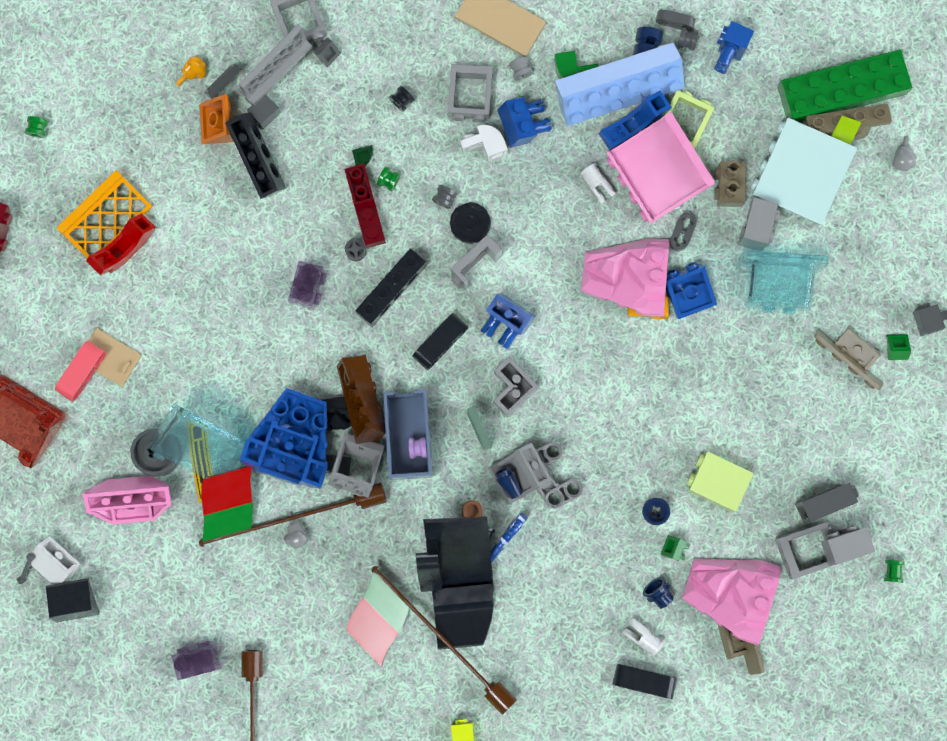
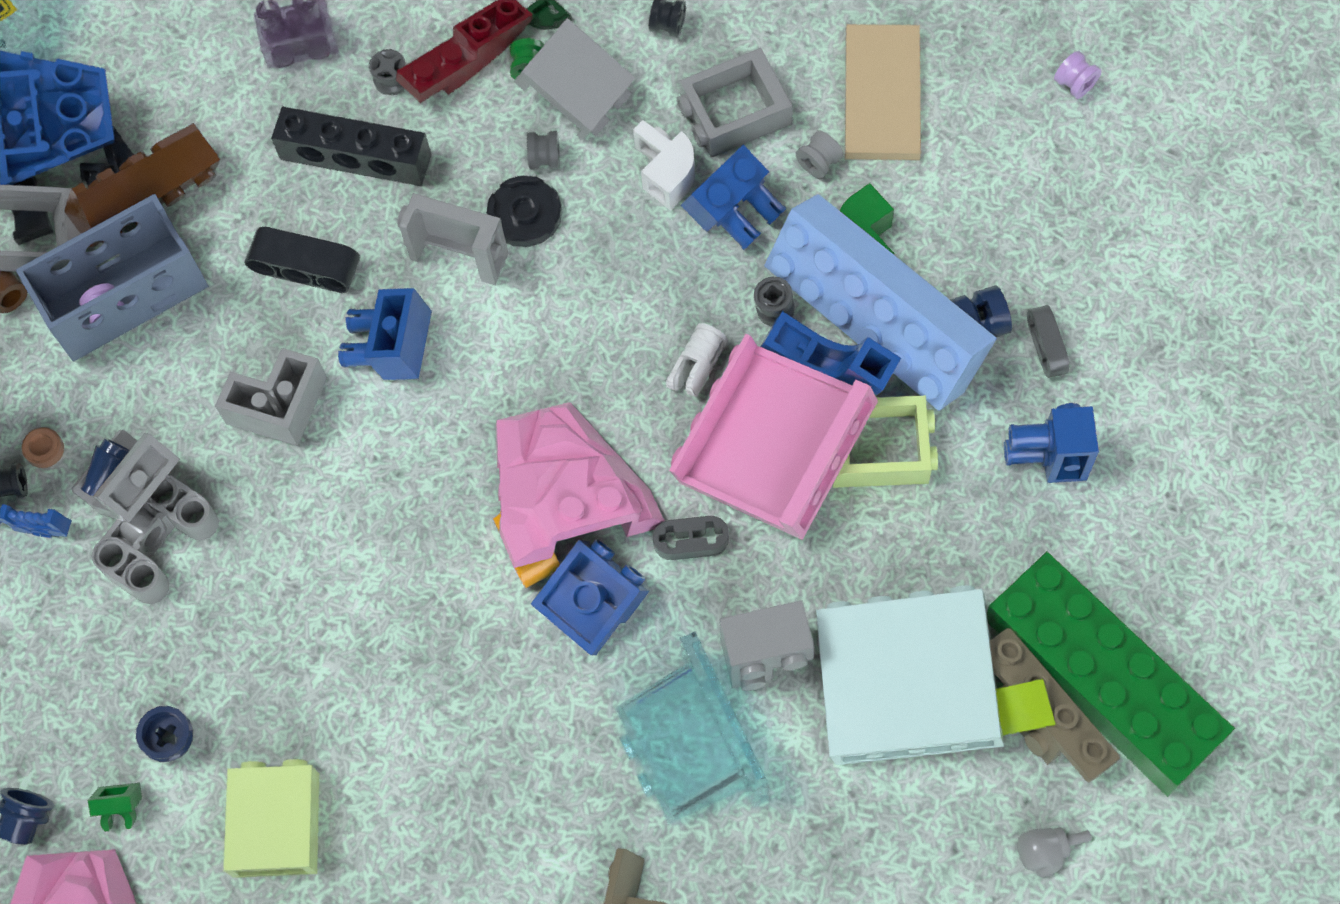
camera: 65 degrees right, 15 degrees down
(417, 161) = (577, 78): none -> light grey panel
(478, 428) = (176, 378): sand green tile -> none
(585, 133) = (770, 309): none -> dark grey wheel
(687, 38) = (1028, 375): dark grey wheel -> none
(730, 184) = (818, 568): dark tan brick -> none

